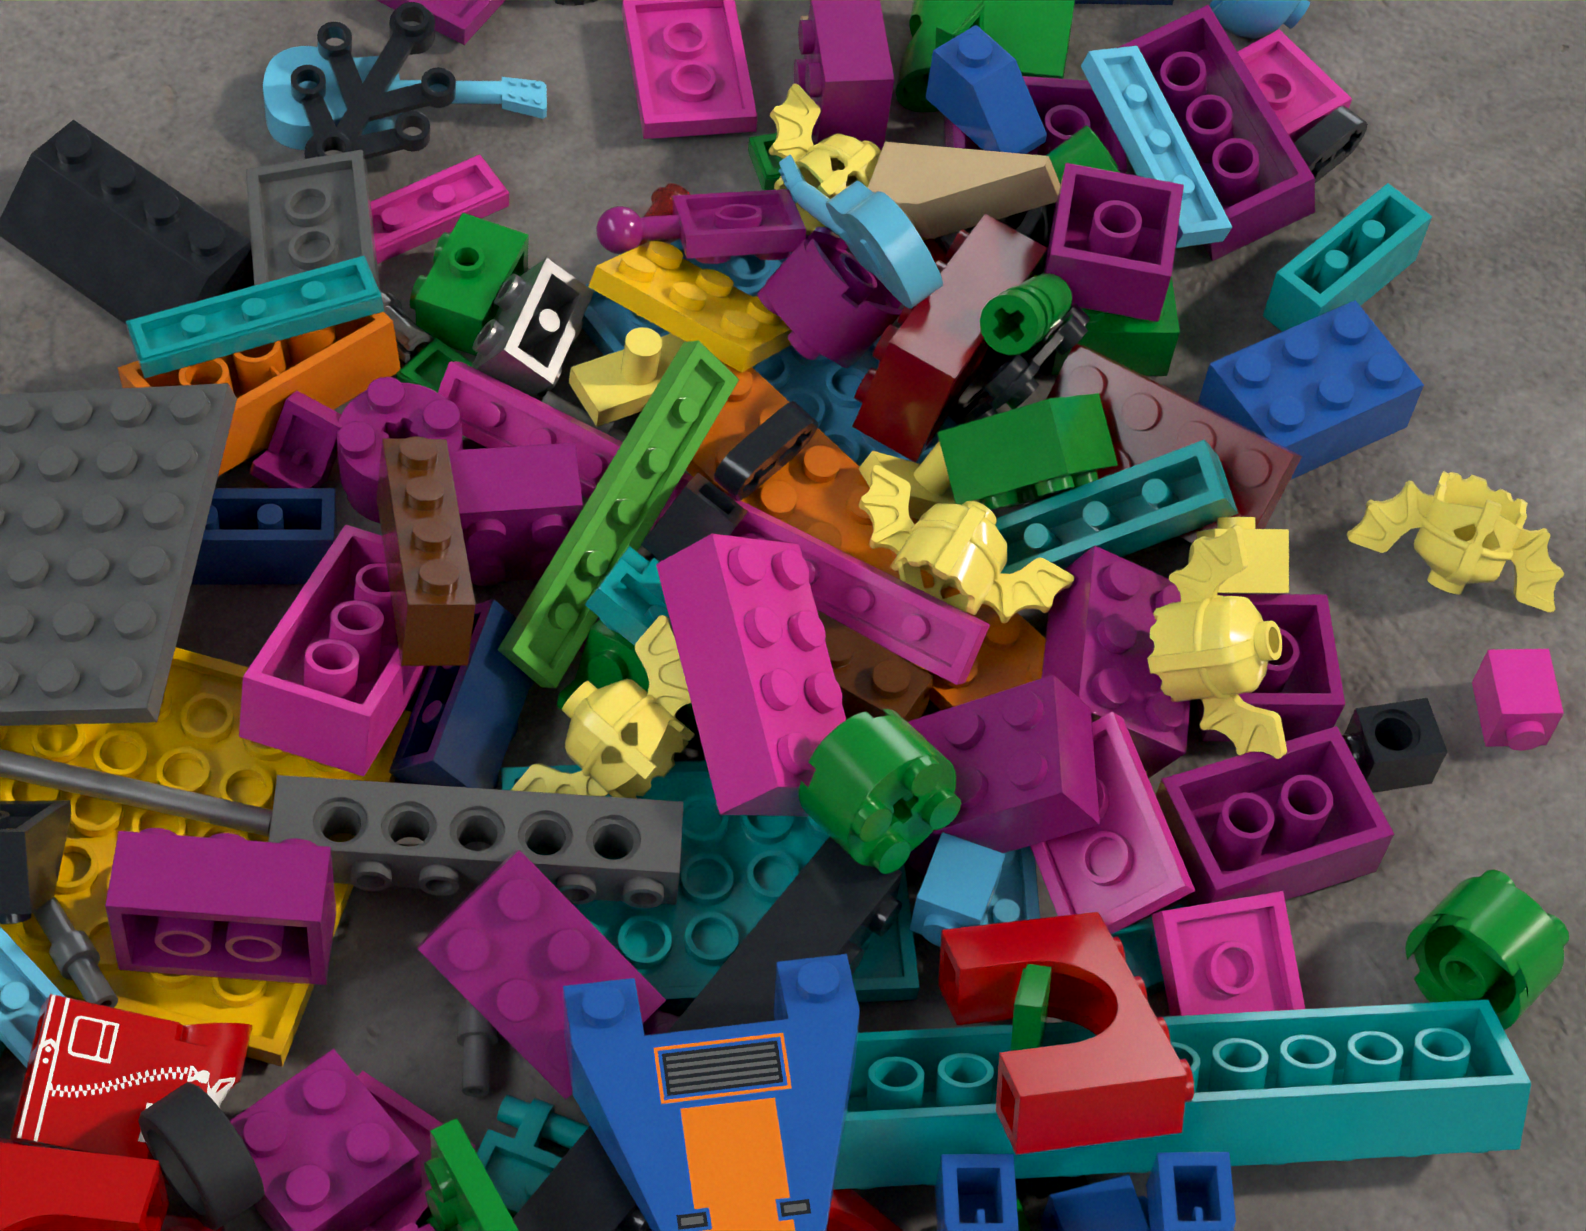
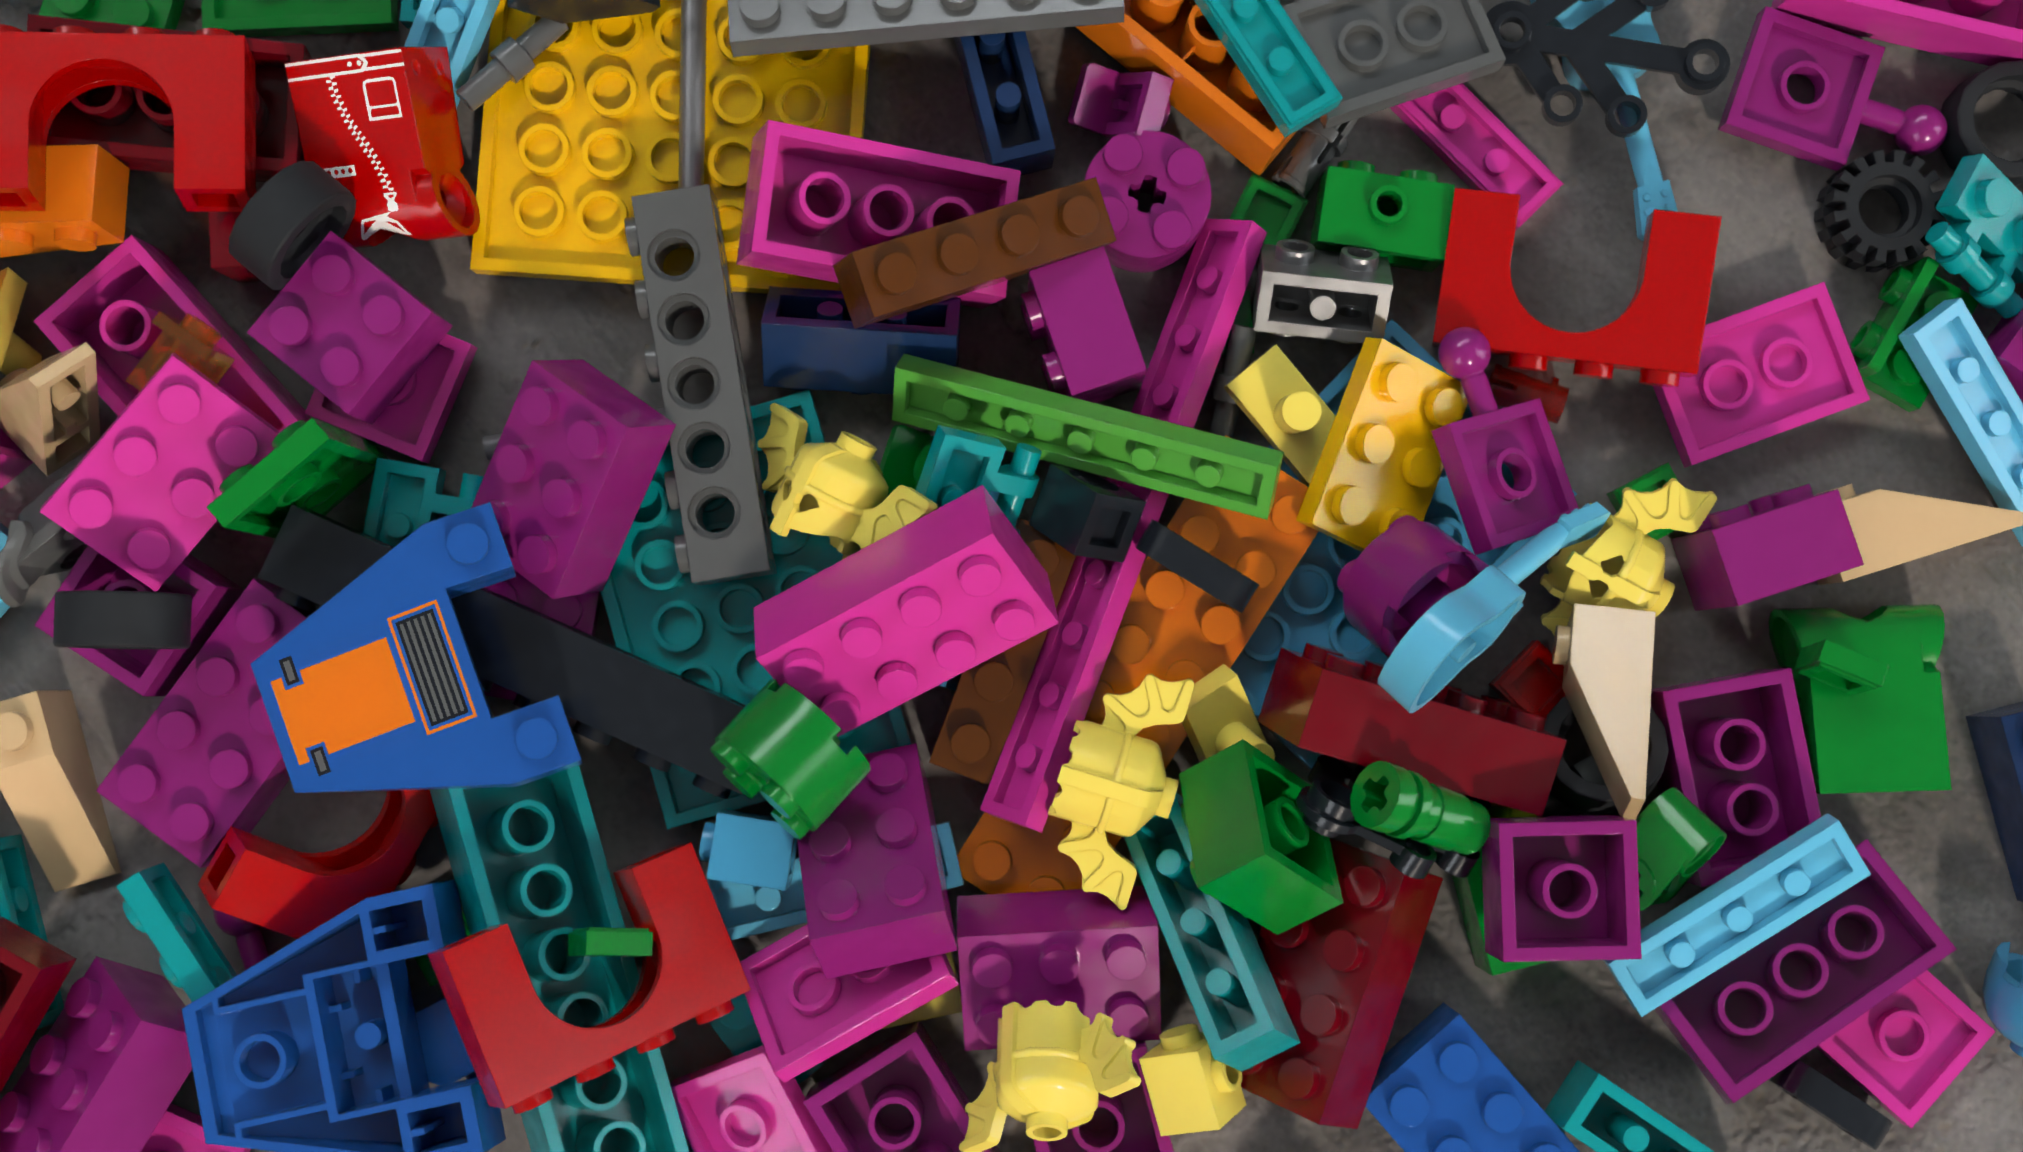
camera: 85 degrees right, 30 degrees up
(222, 906) = (558, 172): magenta brick -> none
(633, 101) = (1654, 335): none -> red arch
(984, 94) = (1743, 713): blue slope -> none

